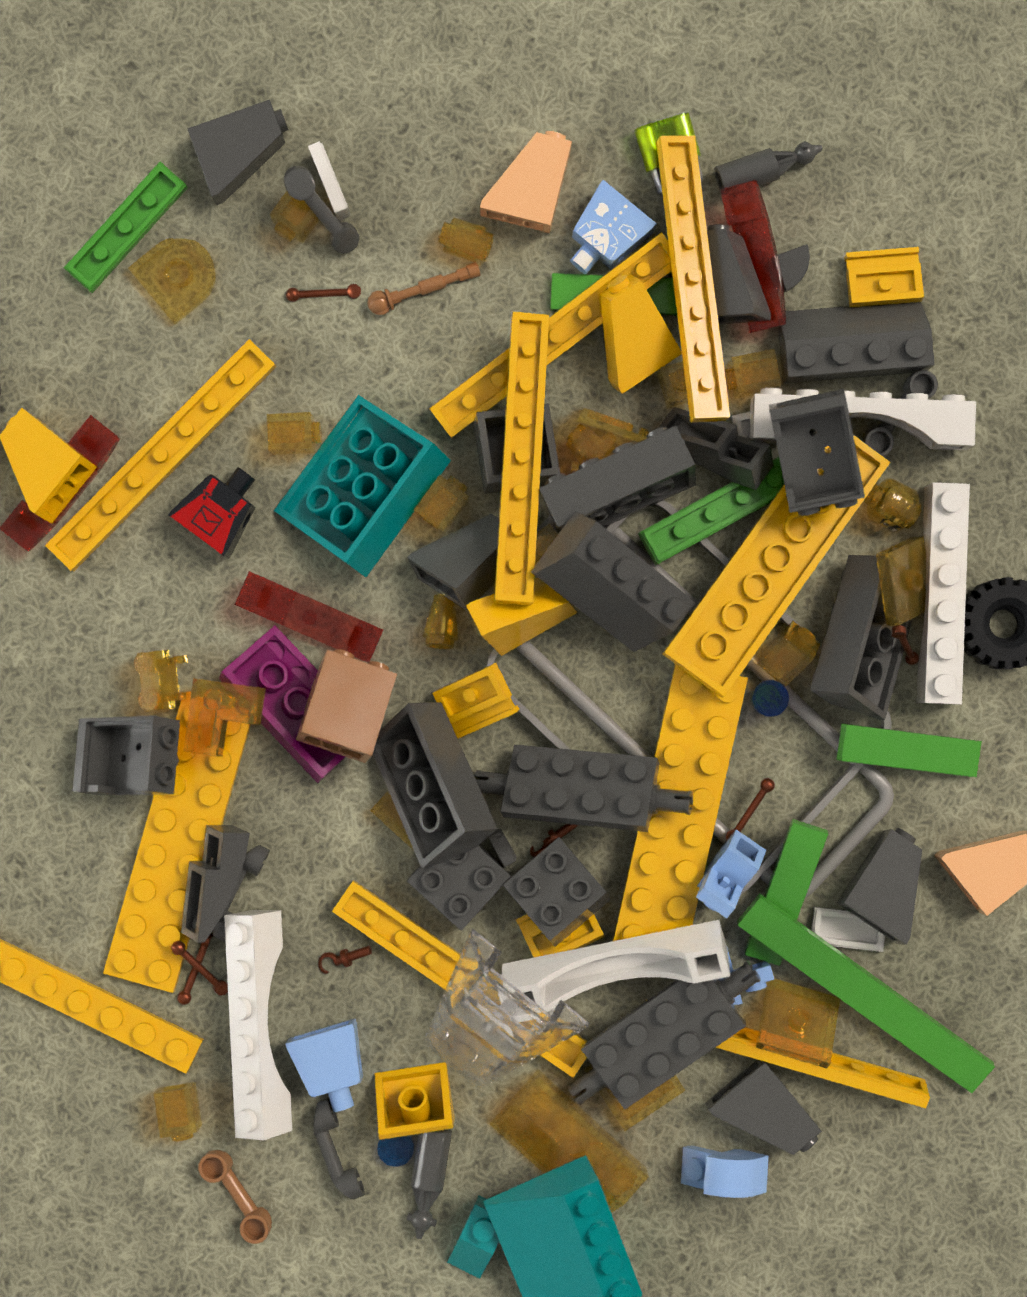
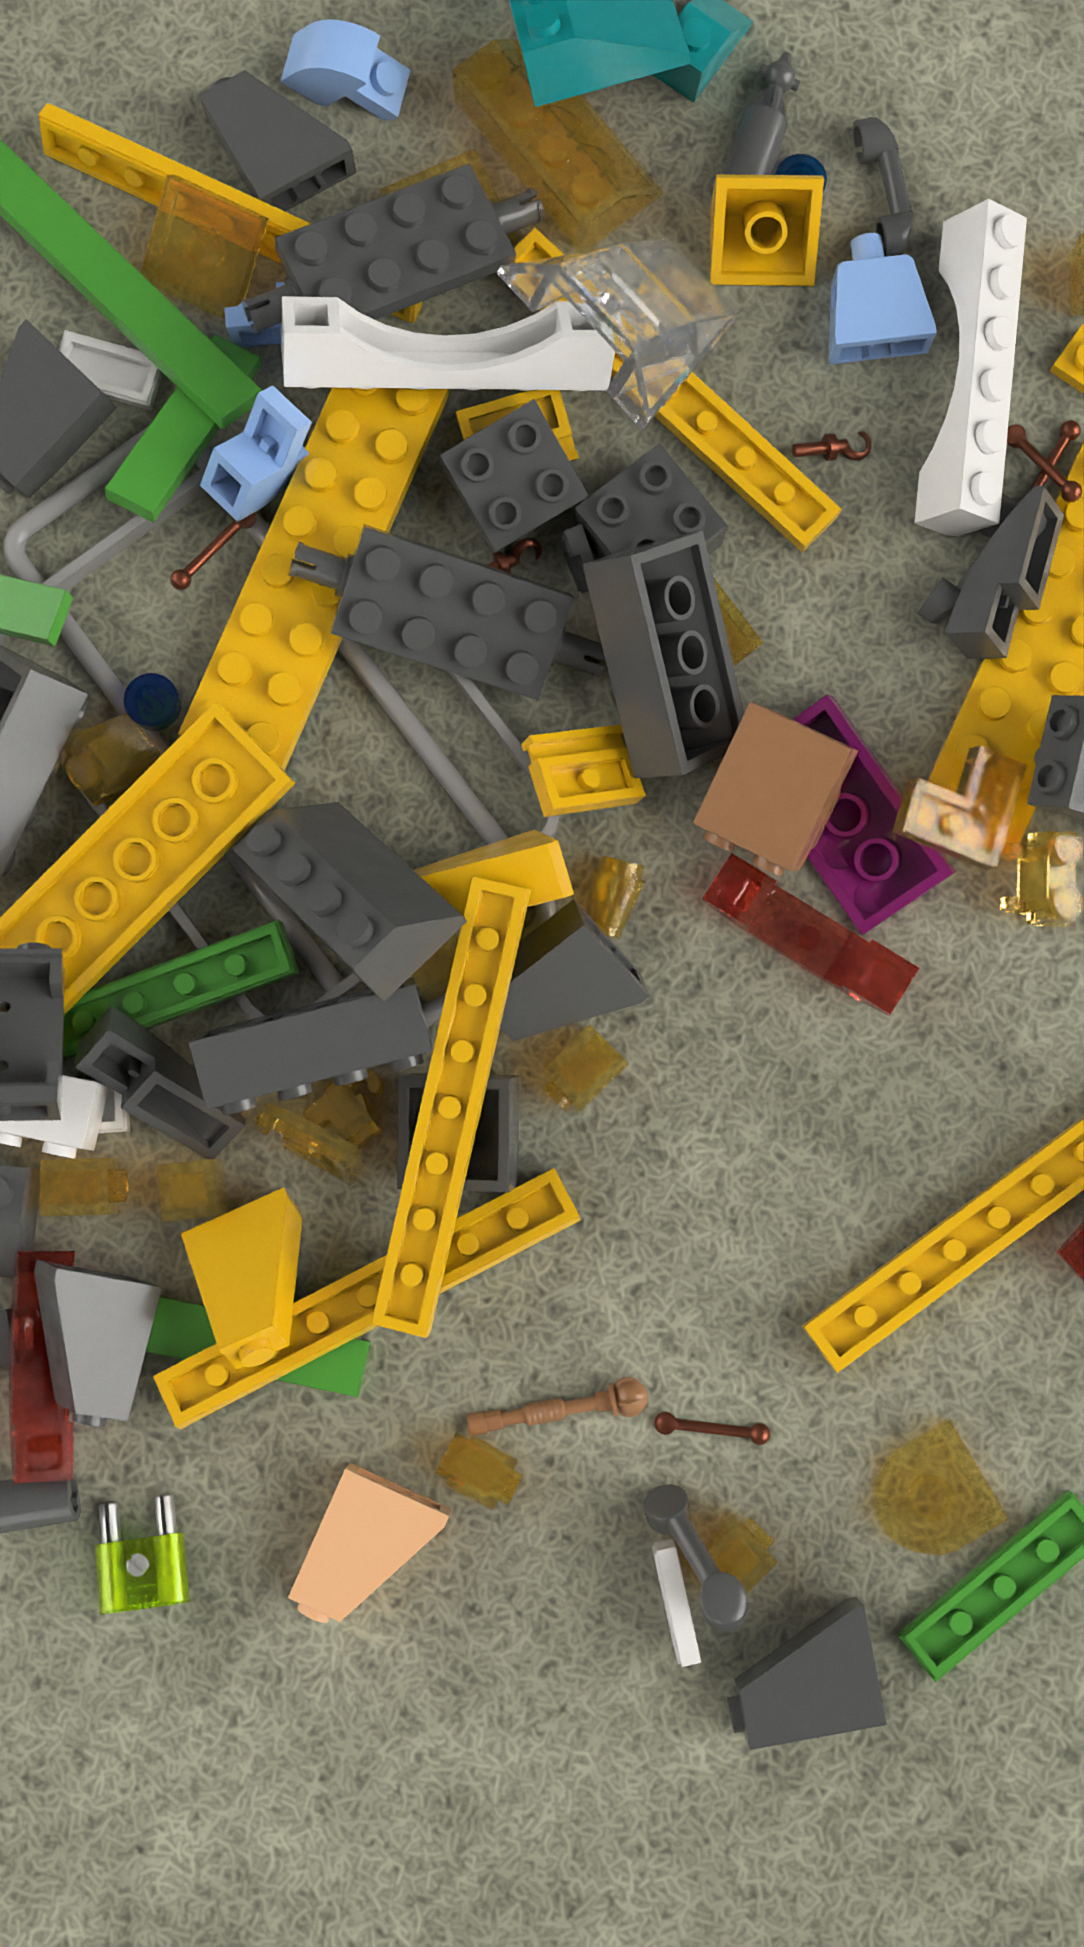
camera: 170 degrees left, 5 degrees down
(217, 511) = (924, 1115): torso -> none
(257, 1218) = (1009, 110): medium nougat bar -> none
(293, 433) = (792, 1215): clear yellow brick -> none
(363, 487) = (700, 1118): teal slope -> none
(609, 229) = (257, 1449): light blue torso -> none
(692, 279) = (140, 1345): yellow plate -> none

